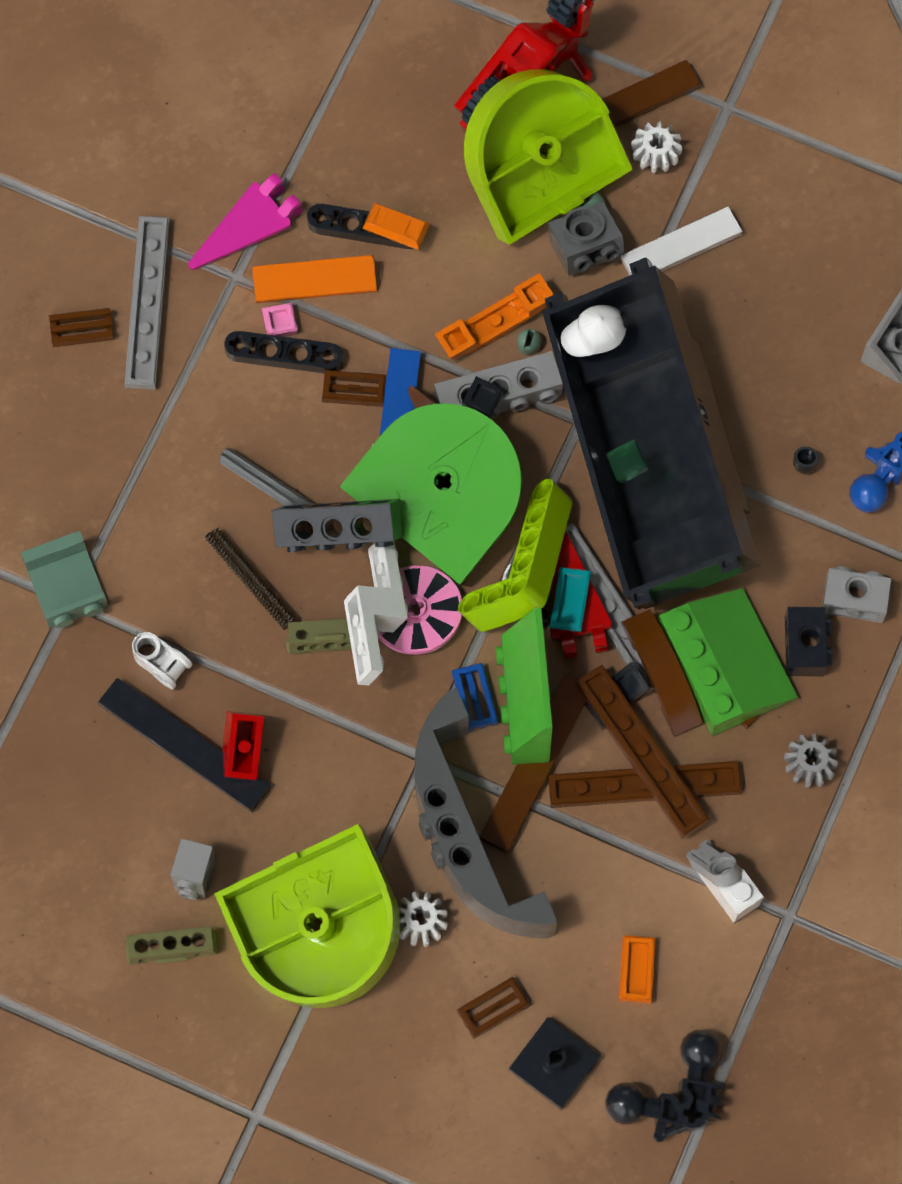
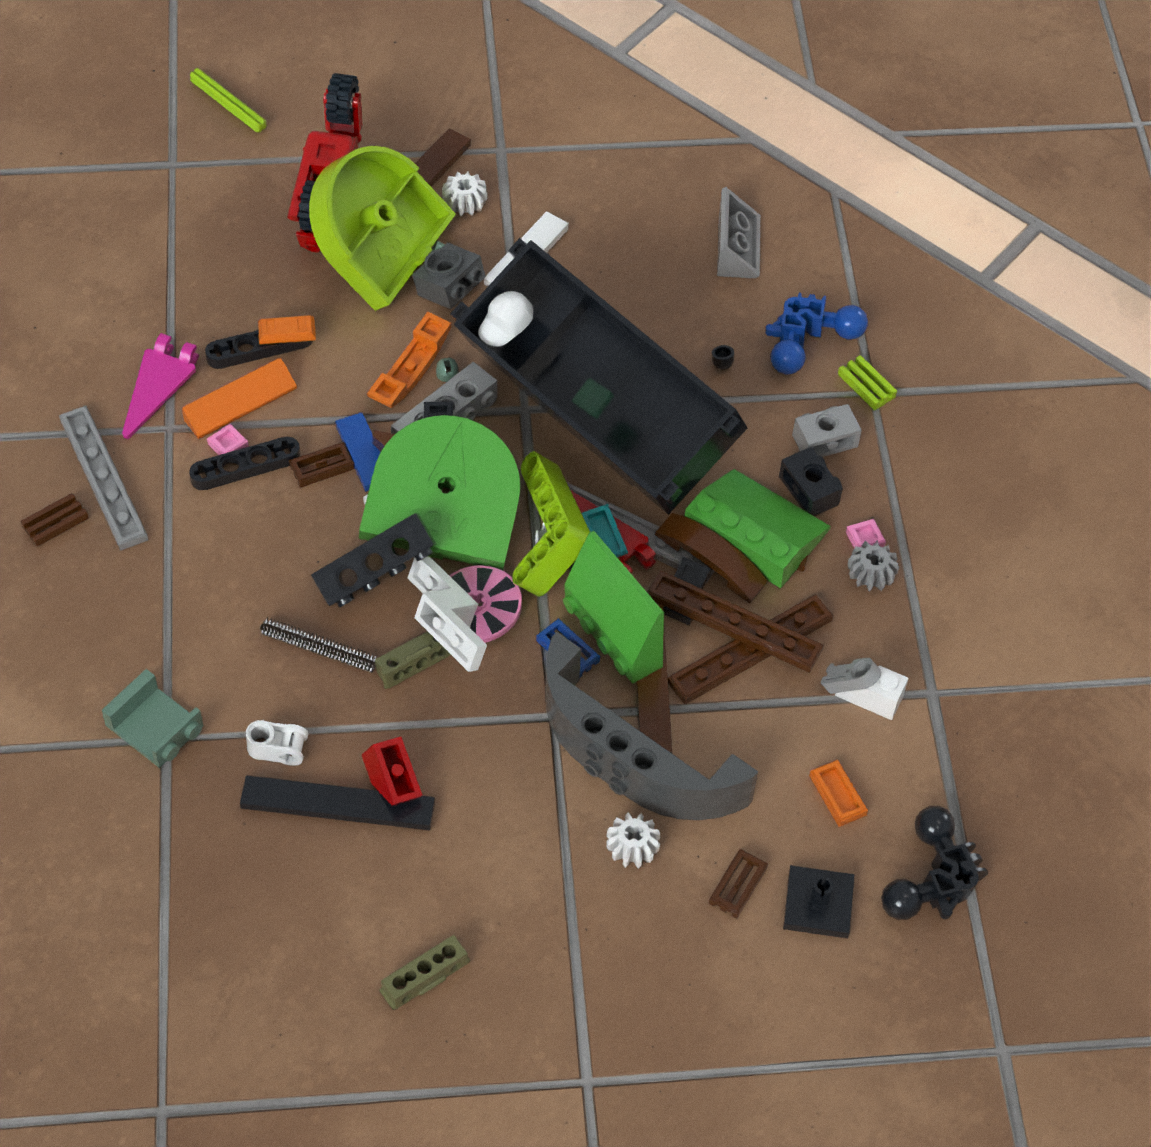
camera: 30 degrees left, 15 degrees down
(193, 869) = (410, 892): light grey brick -> none
(261, 479) = (285, 565): dark grey axle -> none
(277, 908) = (542, 842): lime piece -> none
(827, 723) = (865, 531): none -> bright pink tile

